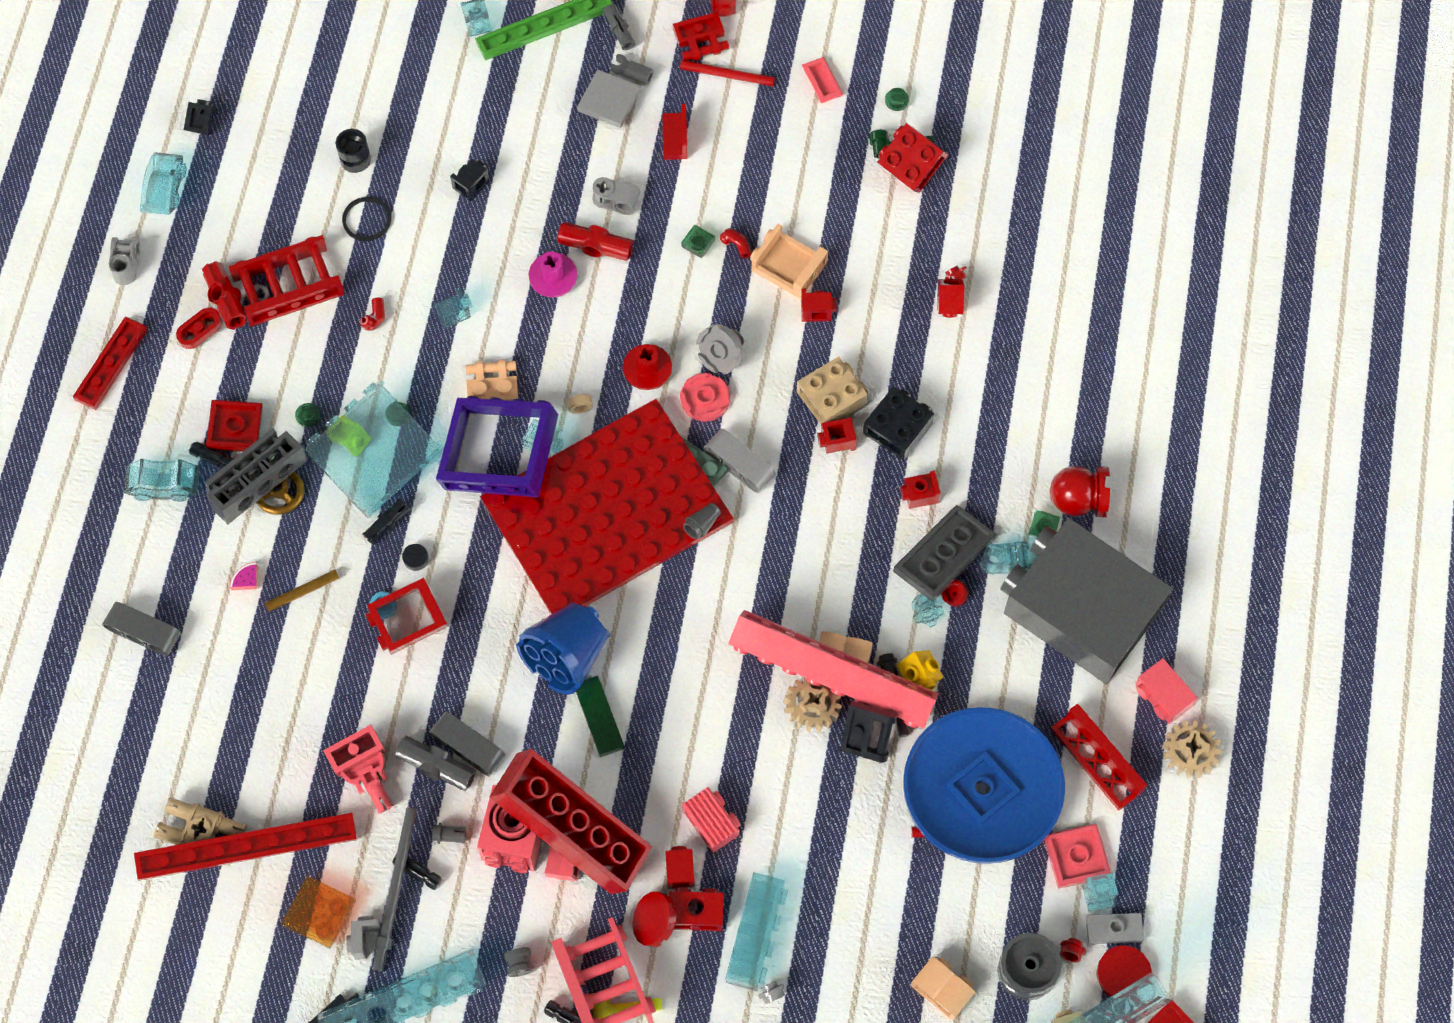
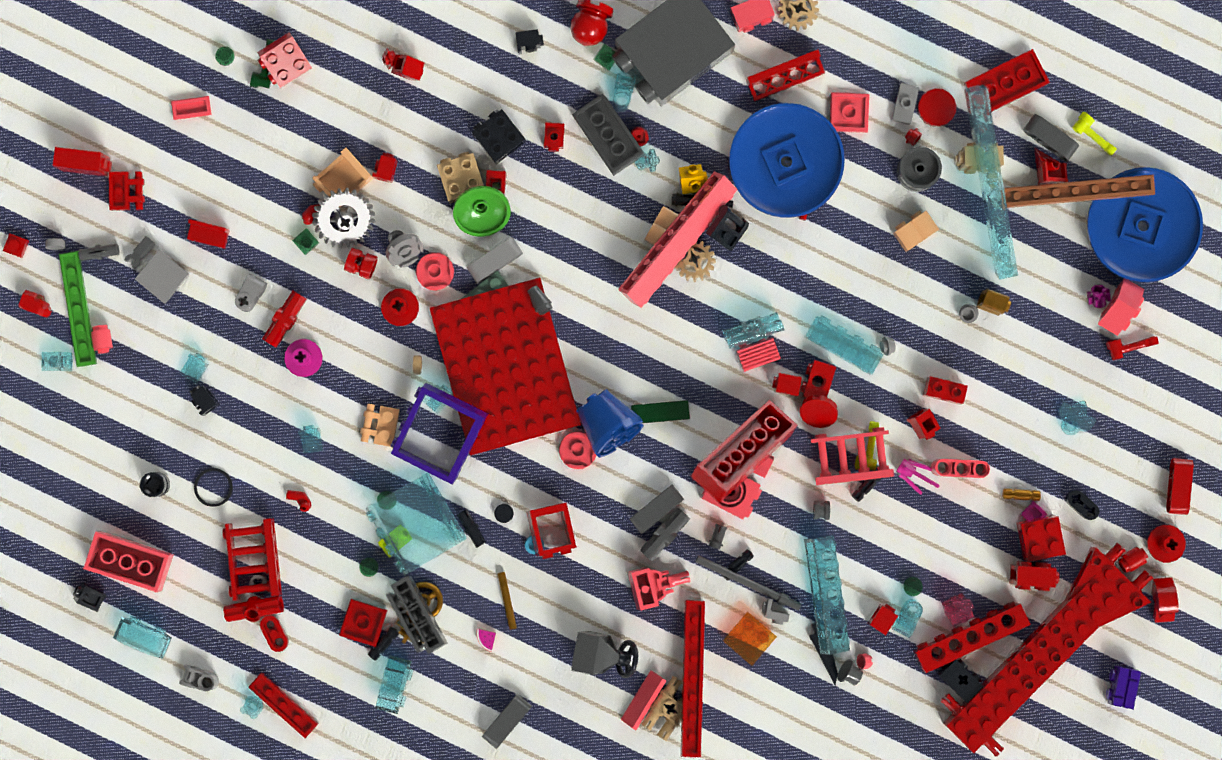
camera: 75 degrees left, 20 degrees up
(100, 325) = (253, 713): none -> clear light blue brick
(204, 794) = (643, 700): none -> coral tile
(251, 145) = (128, 561): none -> coral brick
(252, 711) = (597, 654): none -> dark grey piece
(508, 161) = (194, 367): none -> clear light blue bracket
(514, 620) = (576, 450): none -> coral tile
(515, 54) = (101, 339): none -> coral brick
(689, 306) = (367, 265): none -> red wheel
(724, 264) = (351, 231): none -> gear
(727, 73) = (163, 179): red bar -> none
(741, 802) = (753, 330): none -> clear light blue pin
(786, 424) = (485, 218): none -> bright green dish
(1032, 427) = (529, 41): none -> black brick
(1100, 892) = (880, 105): clear light blue brick -> none

